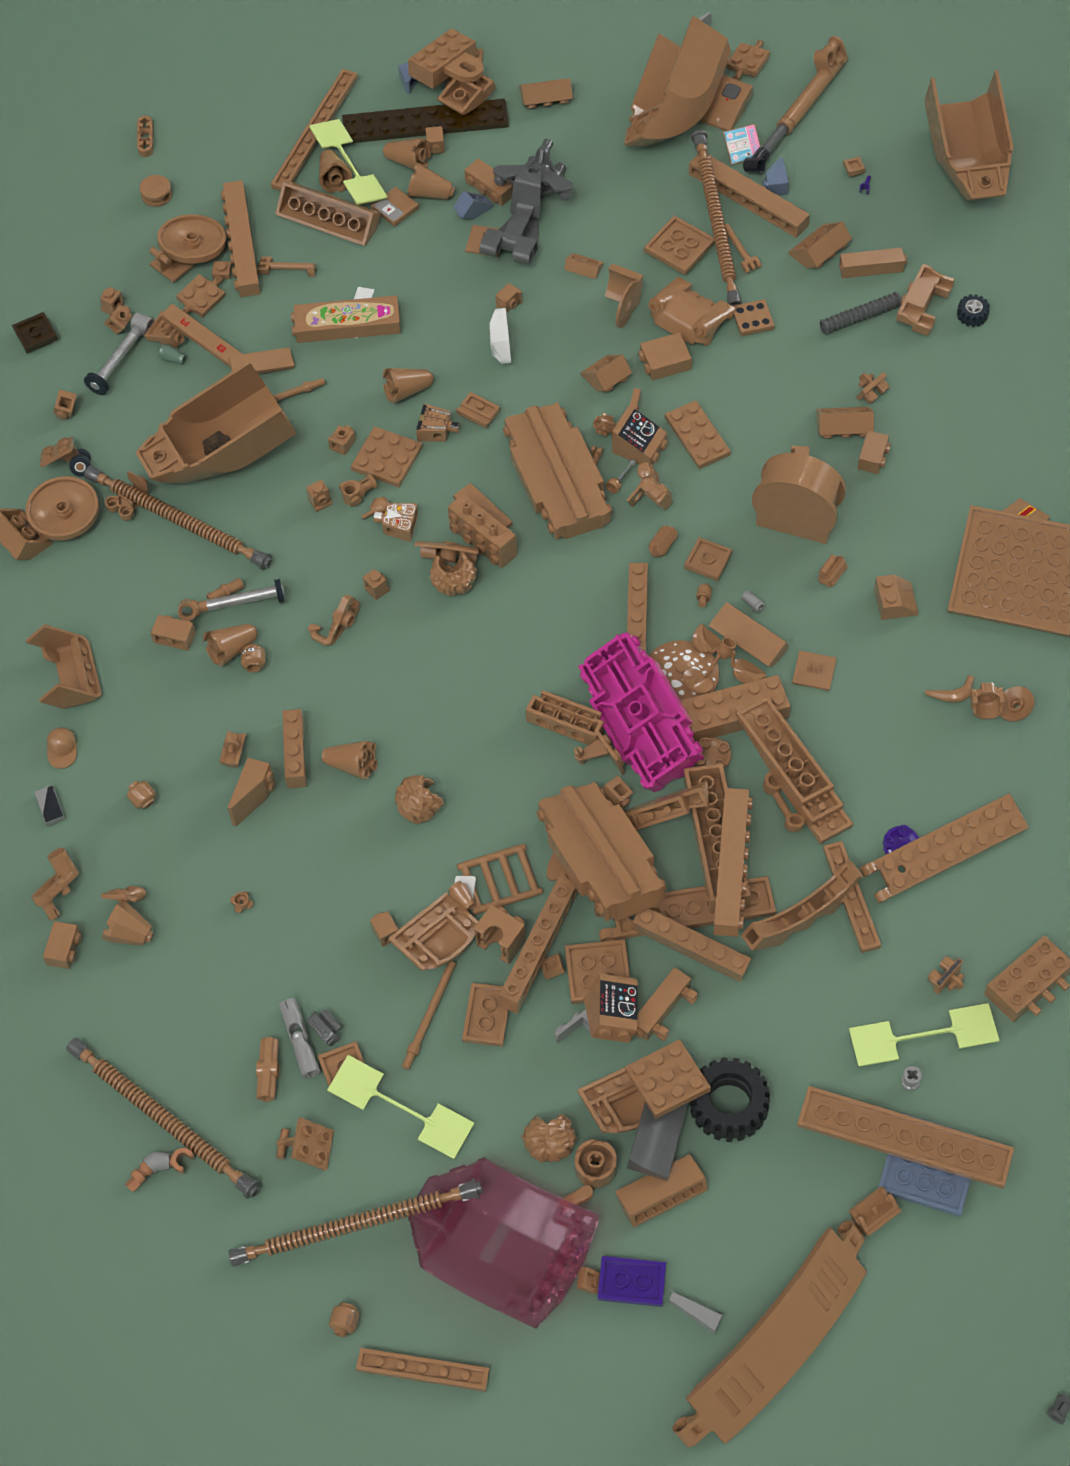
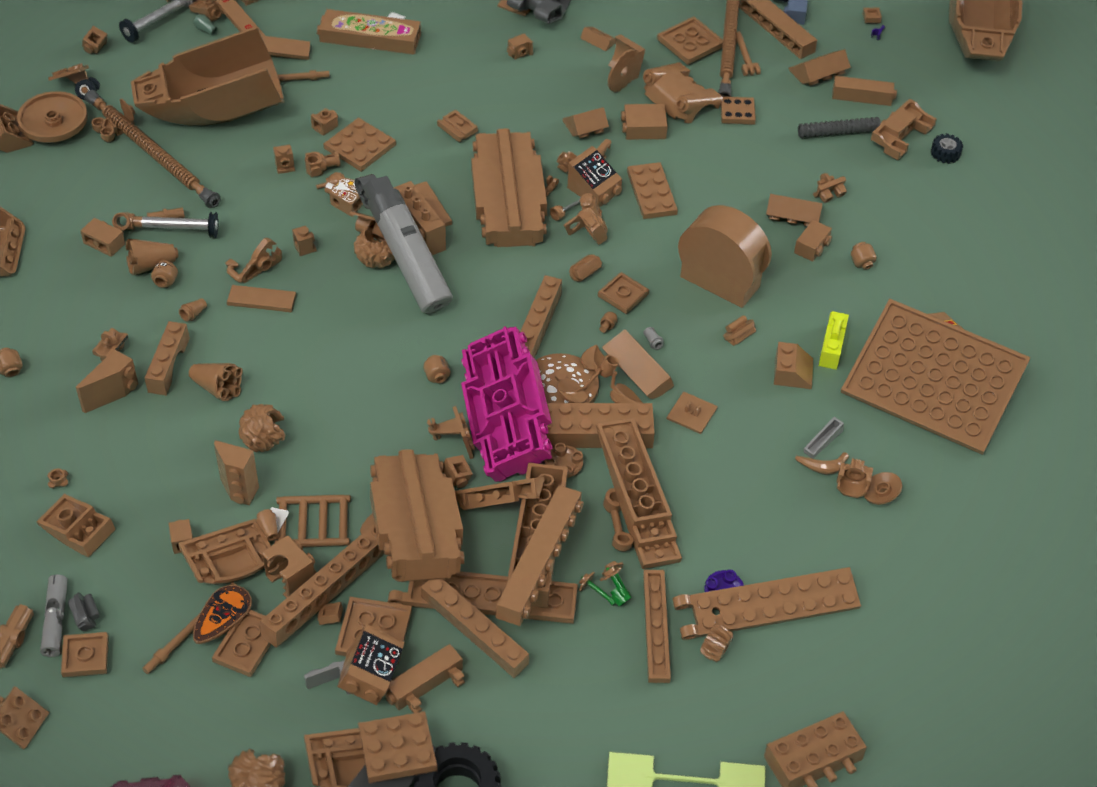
camera: 10 degrees right, 10 degrees down
(280, 943) = (77, 525): none -> medium nougat slope
(295, 689) = (191, 310): none -> medium nougat cone
(357, 658) = (261, 298): none -> medium nougat piece
(405, 382) = (400, 89): medium nougat cone -> none
(414, 852) = (237, 471): none -> medium nougat slope
(435, 424) = (413, 128): medium nougat torso -> none
(442, 1130) = (157, 740): yellowish green hinge -> none
(454, 994) = (221, 612): none -> shield
(482, 563) = (405, 242): none -> light grey piece
(499, 336) = (498, 69): white connector -> none
(559, 687) = (436, 369): none -> medium nougat head
(560, 707) = (408, 383): medium nougat brick -> none
(799, 917) = (596, 629): medium nougat arch -> none
(809, 875) = (619, 595): none -> green plant
(912, 900) = (716, 642): none -> medium nougat gear
(925, 558) = (833, 340): none -> neon yellow piece
(927, 456) = (863, 255): none -> medium nougat head
(941, 981) = (730, 730): medium nougat hips -> none
(946, 665) = (824, 437): none -> light grey piece

